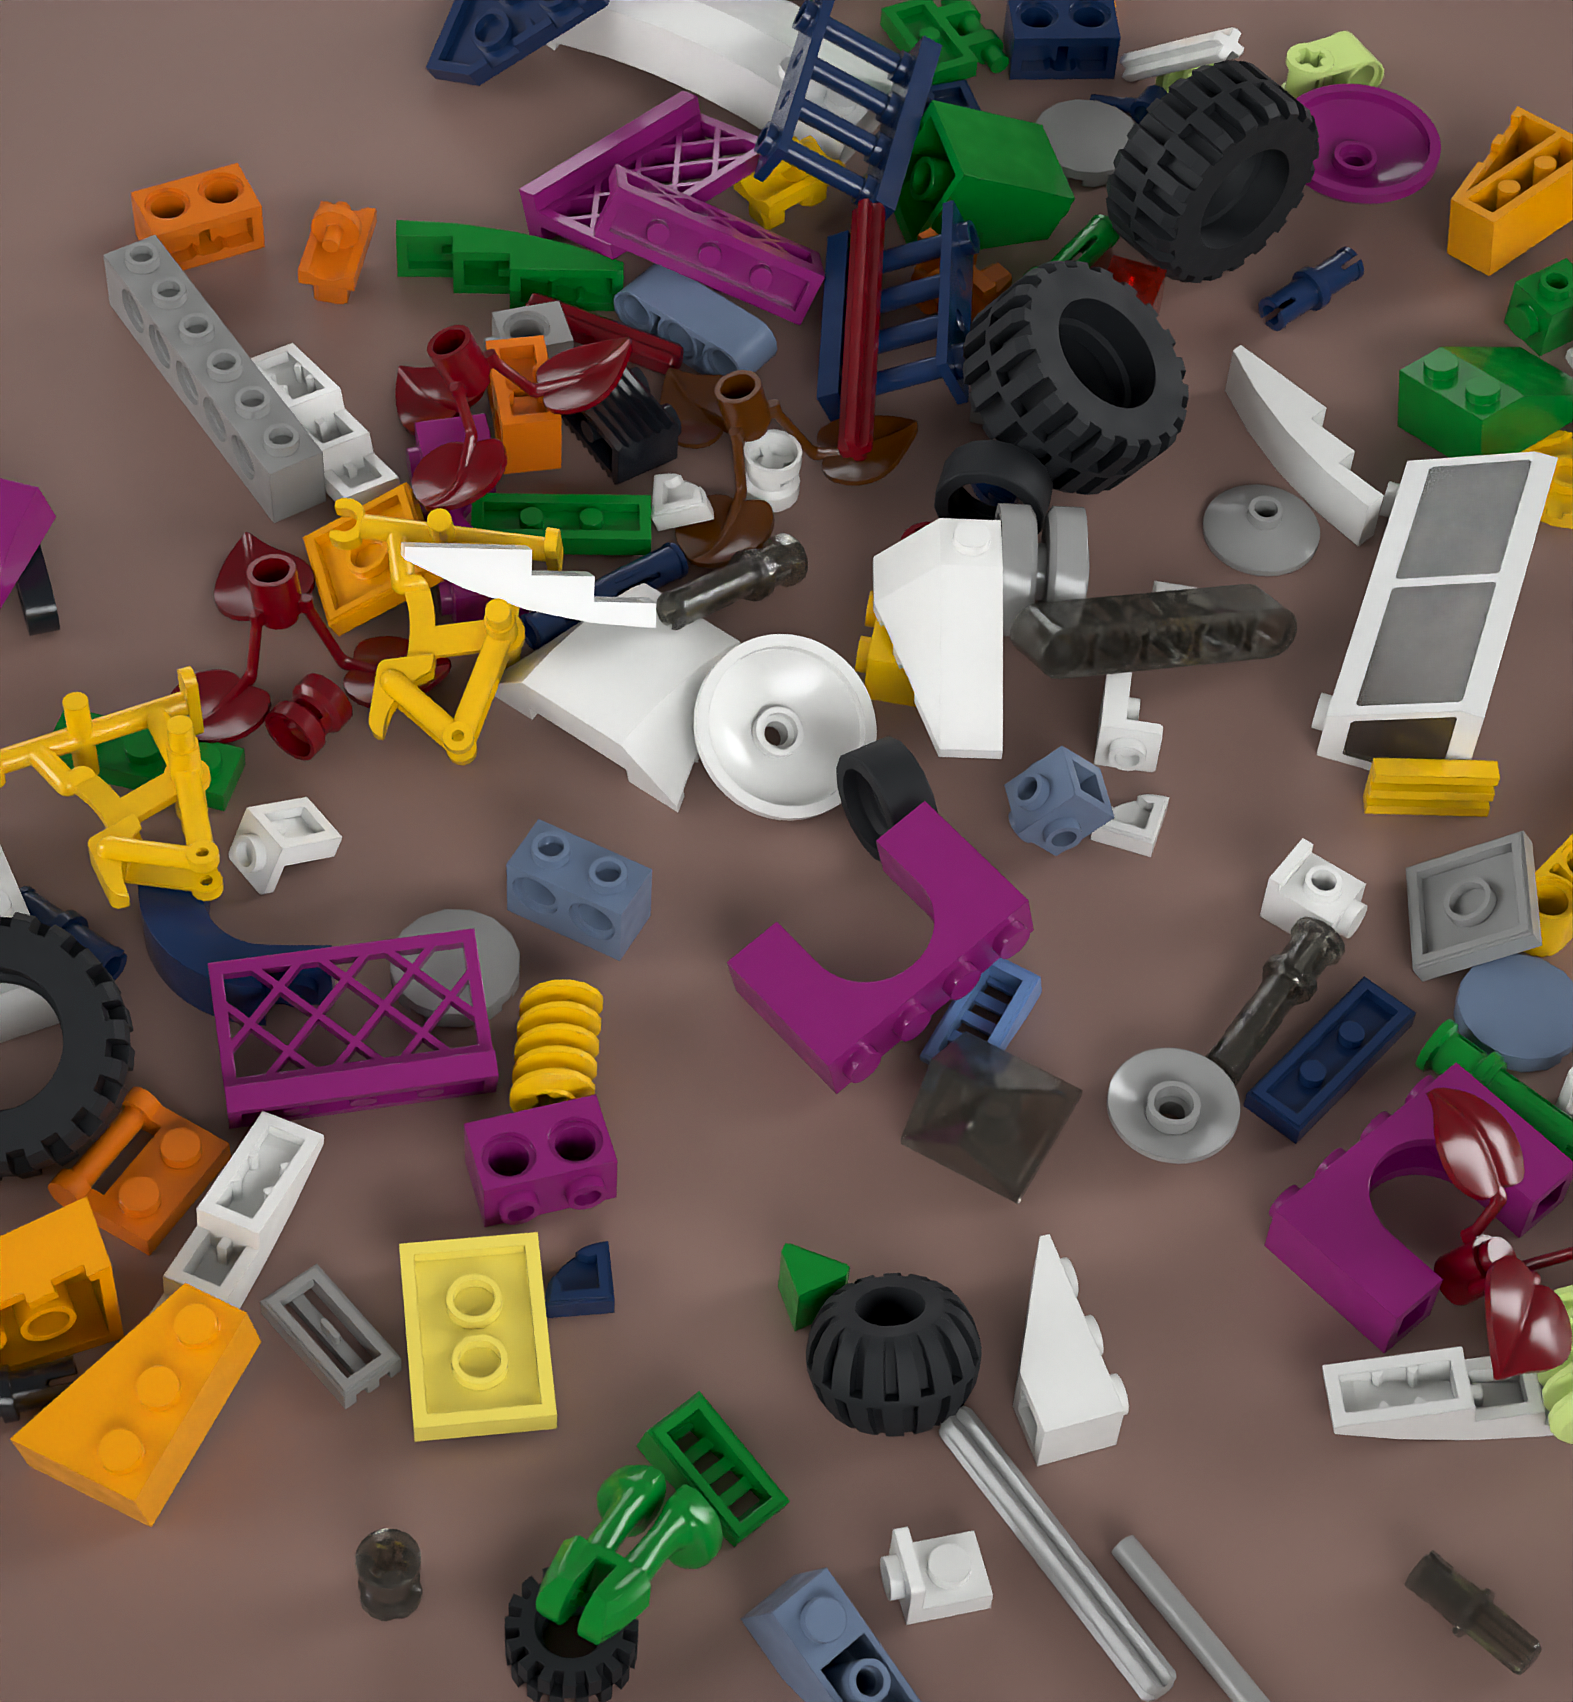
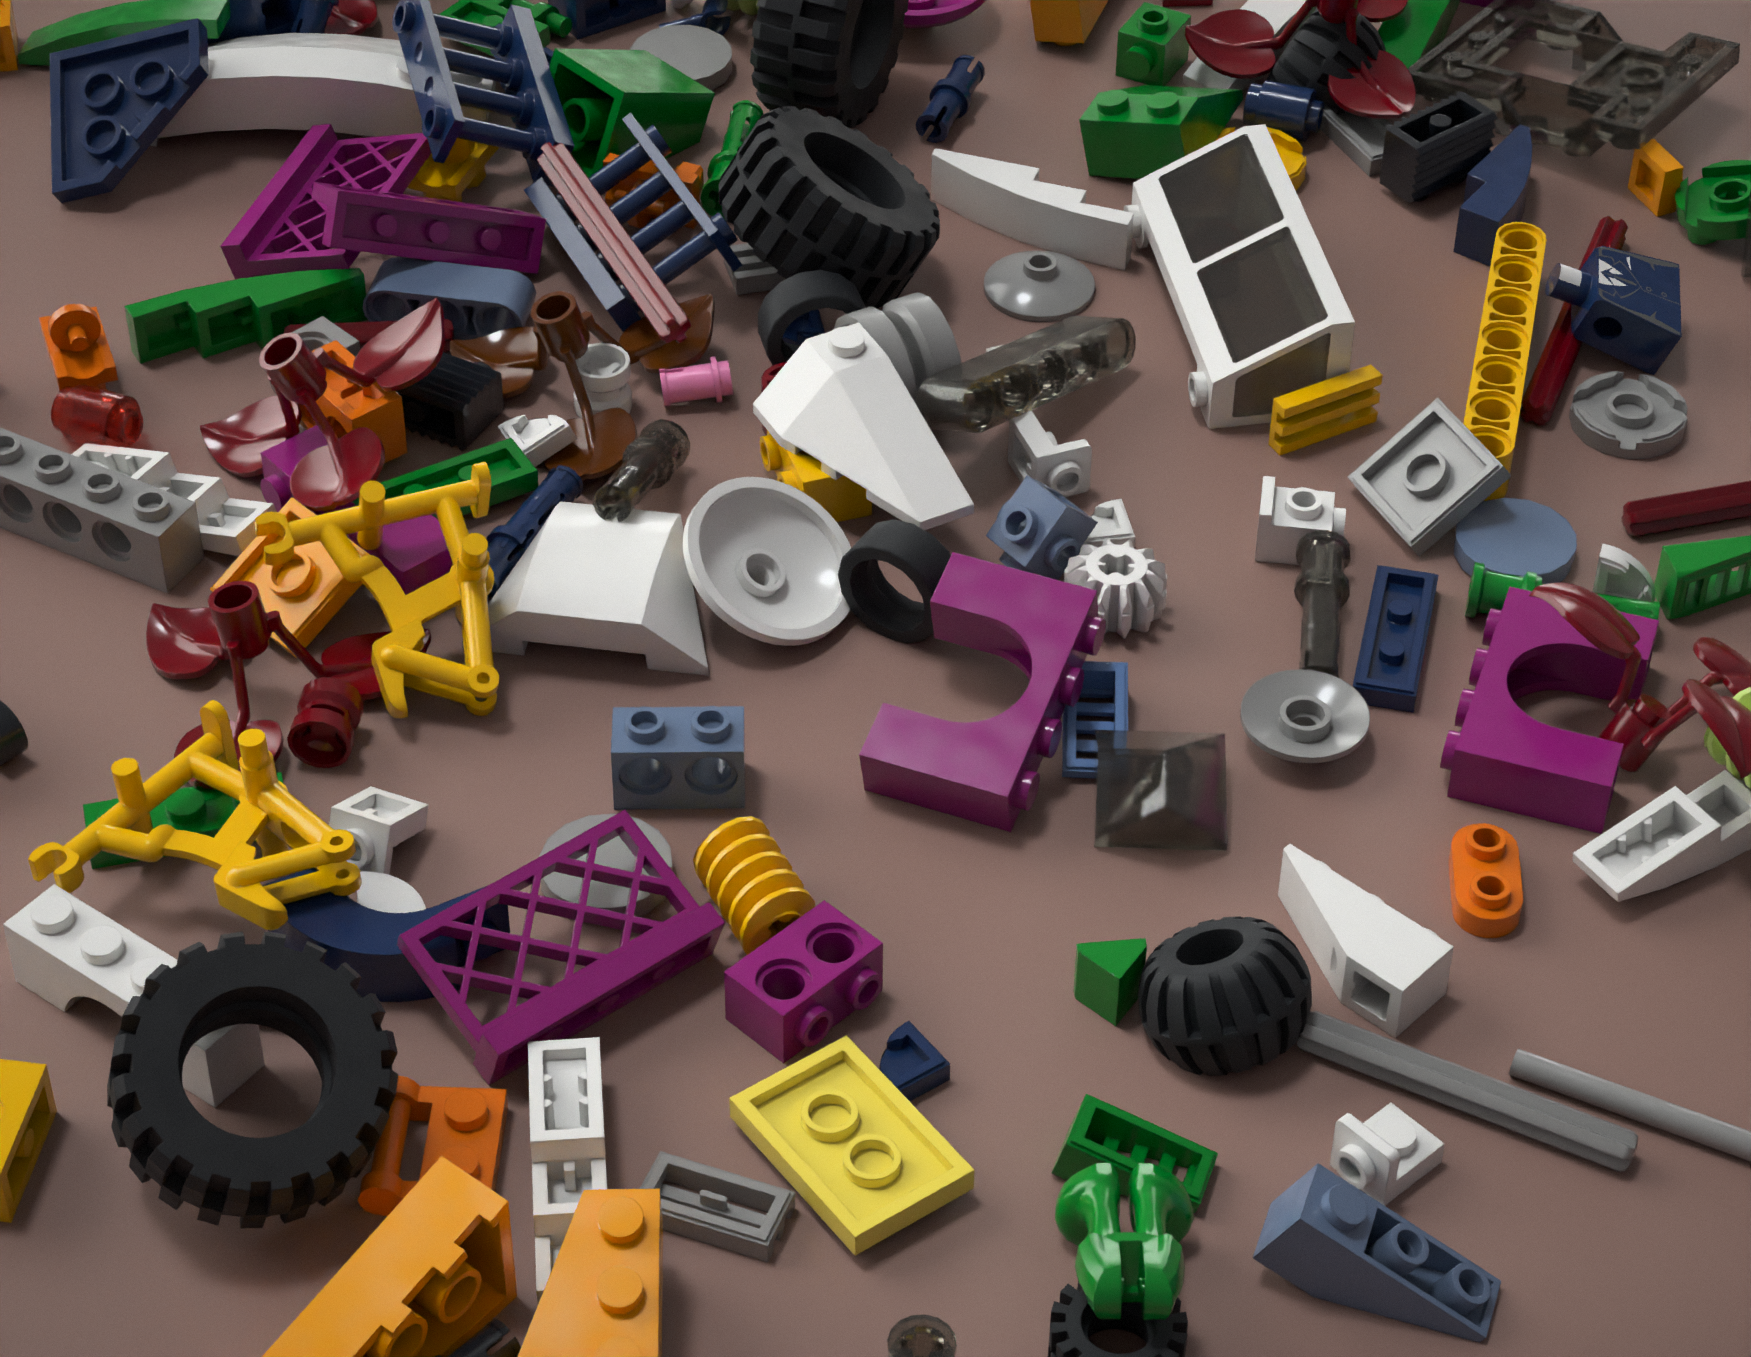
camera: 25 degrees left, 10 degrees down
(251, 914) = (388, 894): none -> white tile
(315, 322) = (97, 416): none -> clear red brick
(508, 575) = (467, 509): white slope -> none
(860, 504) = (696, 382): none -> bright pink pin
(1092, 891) = (1127, 583): none -> white gear
(1234, 1345) = (1485, 880): none -> orange plate

